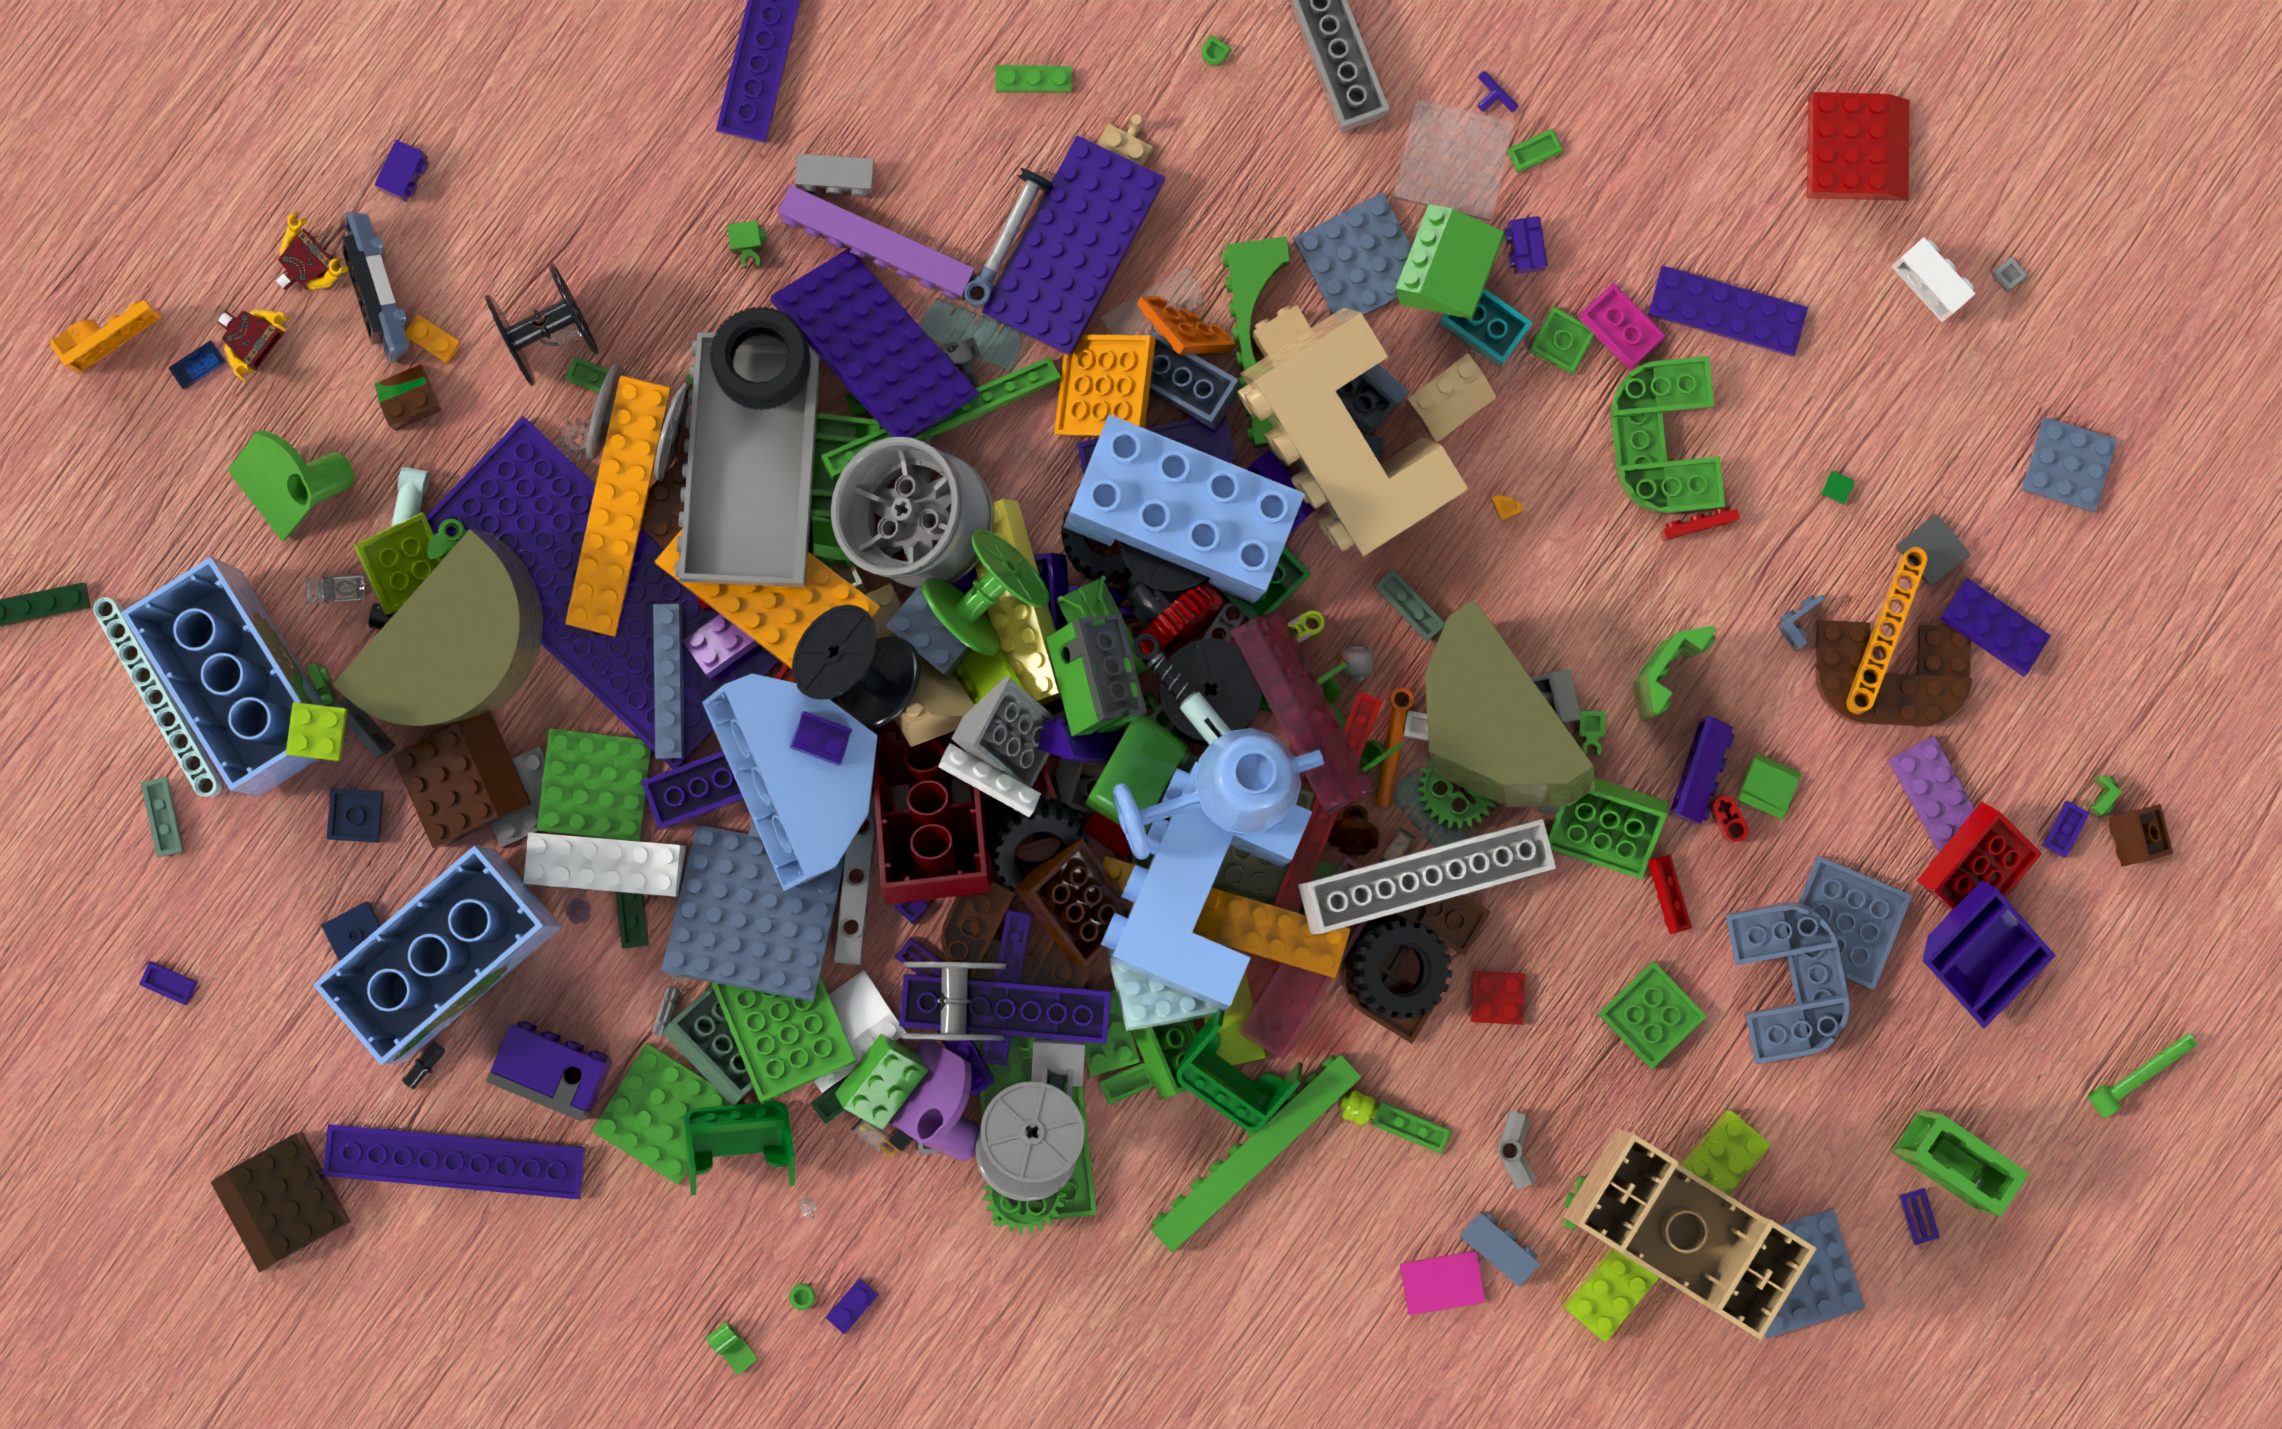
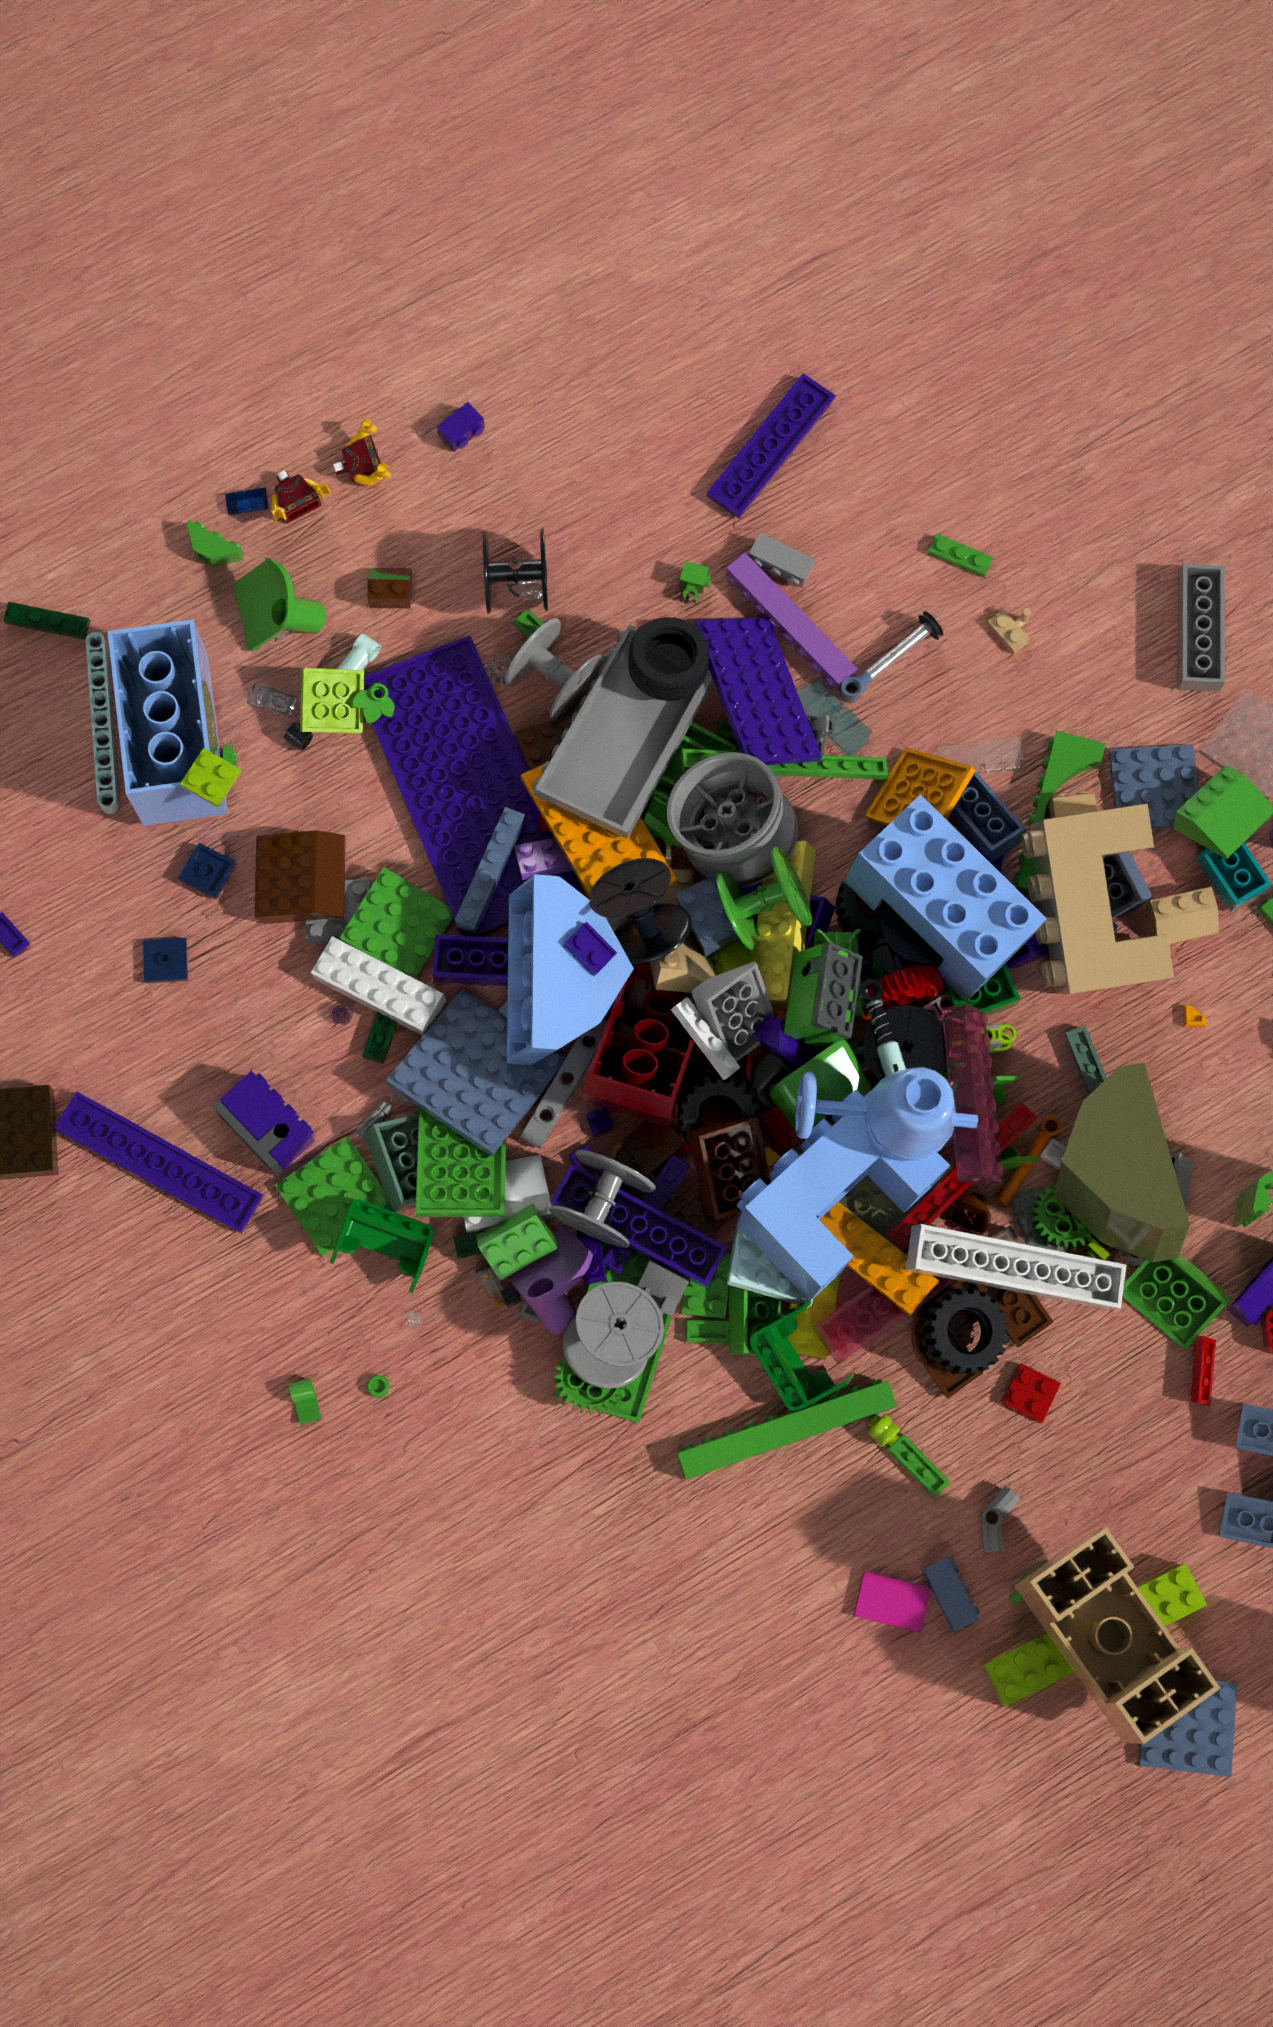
camera: 25 degrees right, 10 degrees down
(91, 343) = (184, 453): light orange plate -> none
(162, 817) = (63, 810): sand green plate -> none
(182, 438) = (211, 546): none -> bright green slope
(366, 729) = (245, 809): dark grey hinge -> none
(372, 287) = (401, 497): piece -> none
(423, 1065) = (170, 1079): black axle -> none
(432, 338) = (427, 554): light orange plate -> none
(437, 955) = (221, 991): light blue brick -> none
(455, 642) = (343, 768): olive brick -> none
(618, 505) = (511, 724): light orange plate -> none
(852, 1305) = (414, 1411): dark purple plate -> none
(1074, 245) = (939, 685): dark purple plate -> none
(1183, 328) = (999, 778): orange plate -> none
(1214, 51) = (1106, 592): bright green tile -> none
(1359, 661) = (1029, 1083): light grey head -> none
(1505, 816) = (1096, 1251): none -> lime plate
(1592, 726) = (1195, 1211): bright green plate -> none
(1652, 1015) = (1150, 1460): bright green plate -> none

